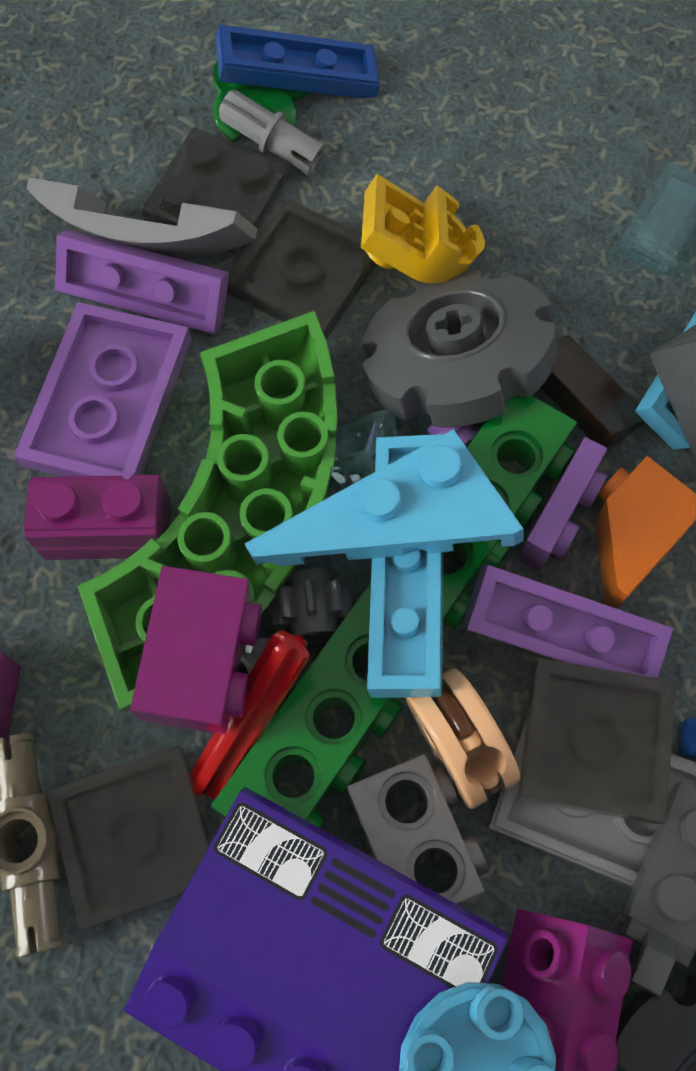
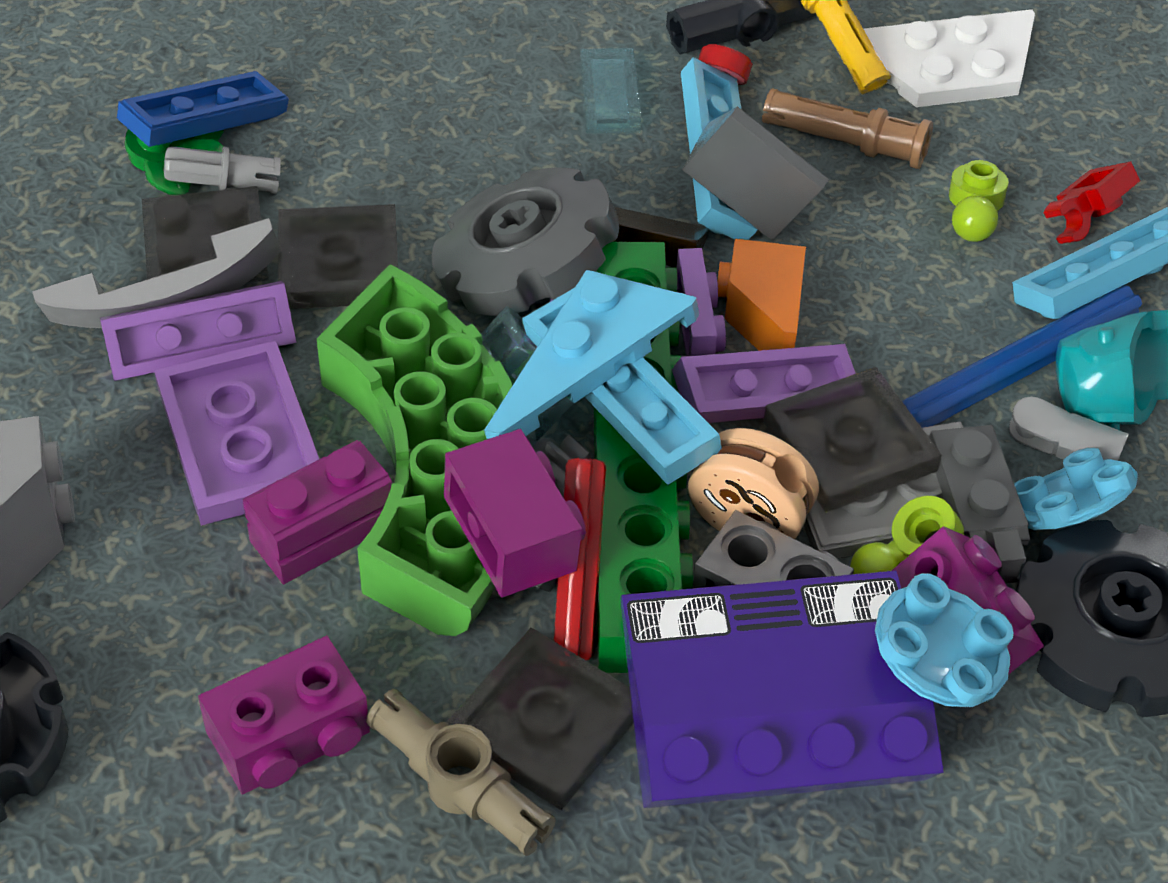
camera: 40 degrees left, 20 degrees down
(417, 236) = (421, 179): yellow slope -> none
(533, 881) = (909, 531): none -> lime plate

